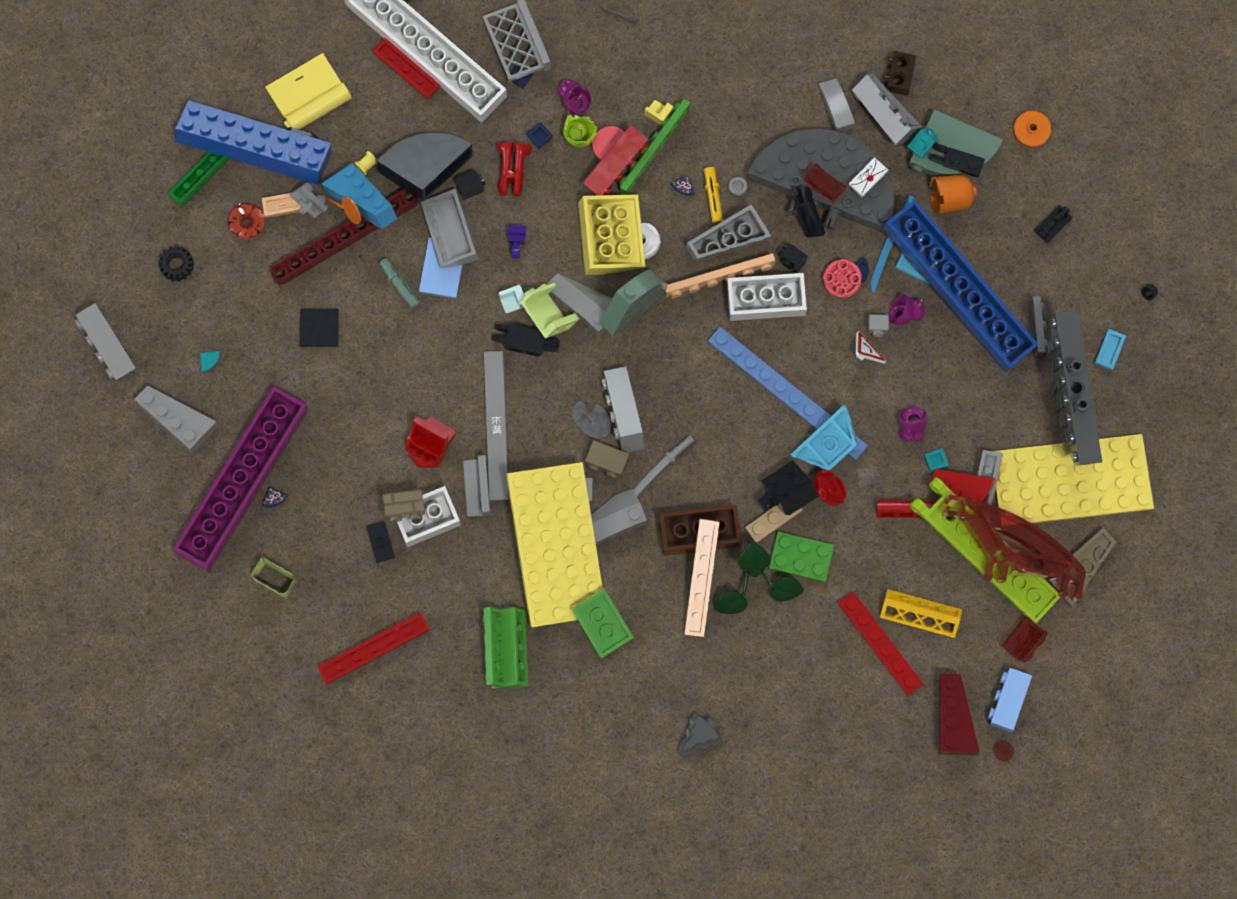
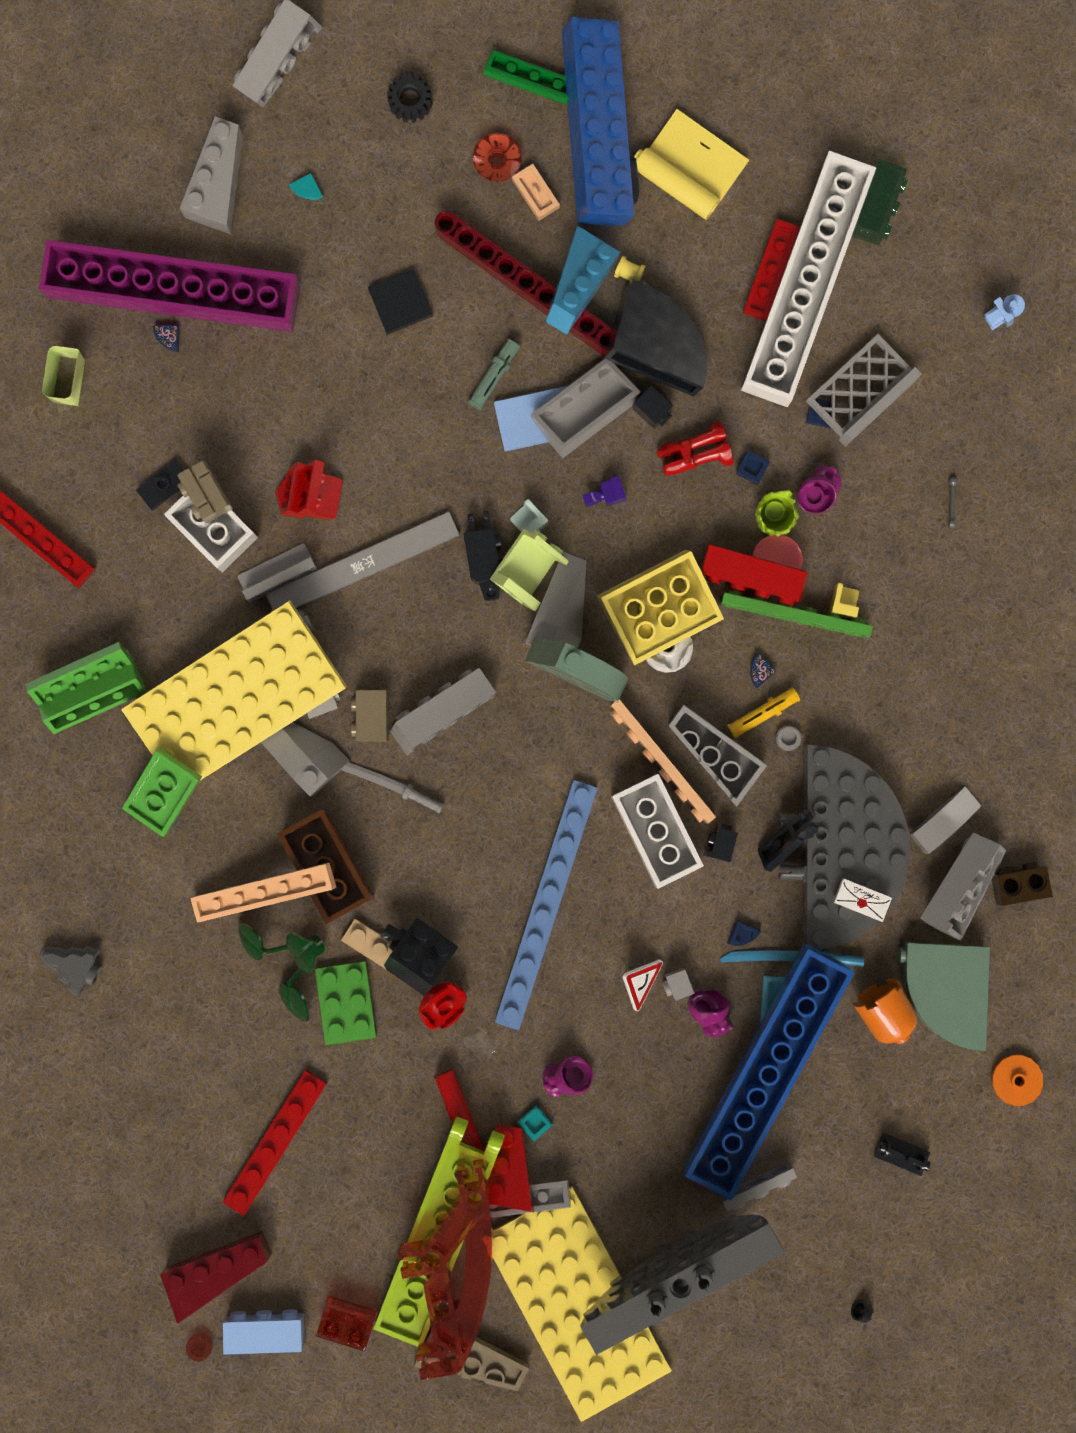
camera: 65 degrees right, 10 degrees up
(308, 201) = (548, 220): light grey hips -> none
(349, 207) = (560, 263): orange piece -> none
(596, 423) = (415, 684): flat silver piece -> none
(824, 183) = (831, 848): clear red hinge -> none
(829, 442) = (500, 982): medium azure wing -> none
(842, 278) = (721, 916): coral tile -> none
(907, 603) = (336, 1180): yellow fence -> none
(923, 142) = (939, 952): teal bracket -> none
(958, 160) = (933, 1006): black hinge -> none
(1110, 349) = (766, 1289): medium azure tile -> none

